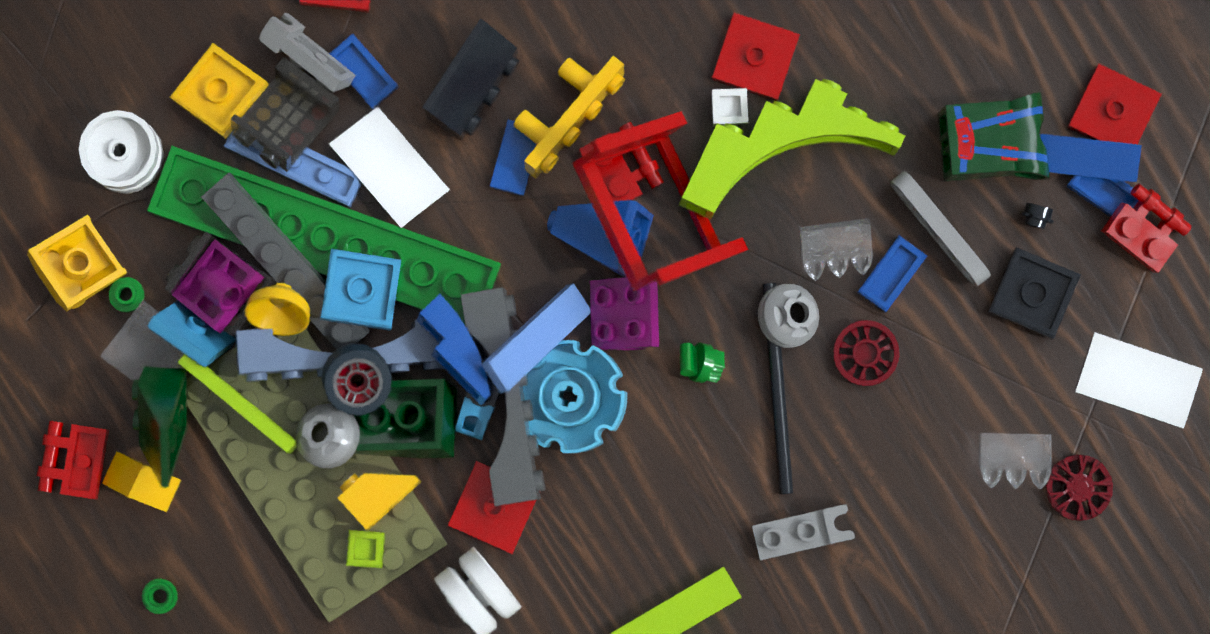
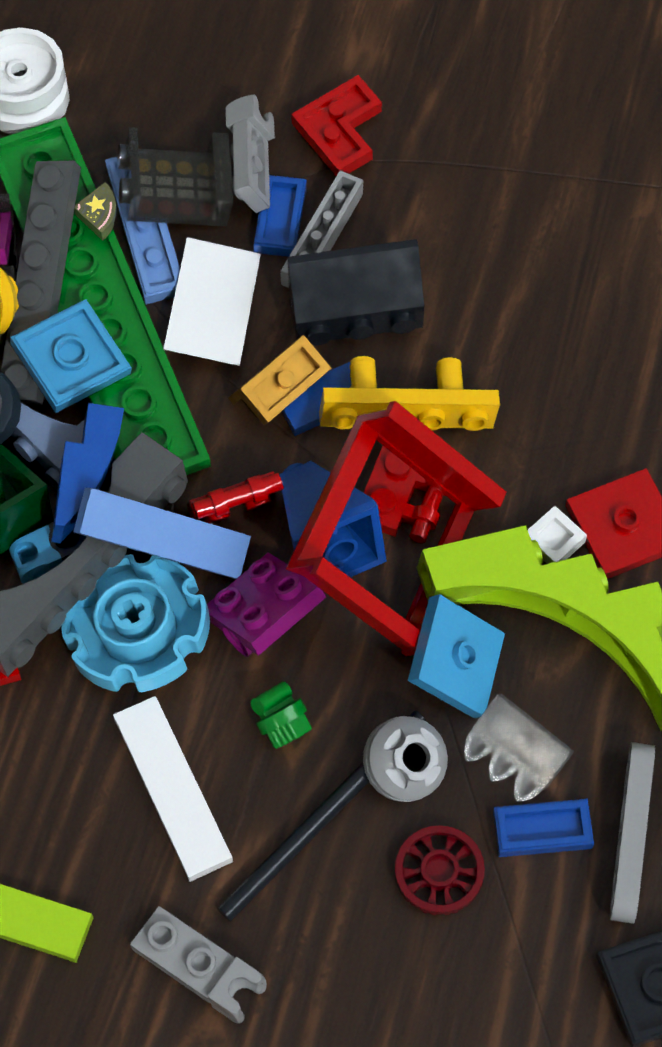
camera: 50 degrees right, 20 degrees down
(218, 90) = (157, 111): yellow plate -> none
(267, 185) = (98, 211): none -> olive tile
(401, 56) = (328, 219): none -> light grey piece
(484, 175) = (282, 380): none -> panel
(542, 271) = (253, 492): none -> red plate
(686, 459) = (173, 788): none -> white tile
(756, 233) = (456, 656): none -> dark azure plate

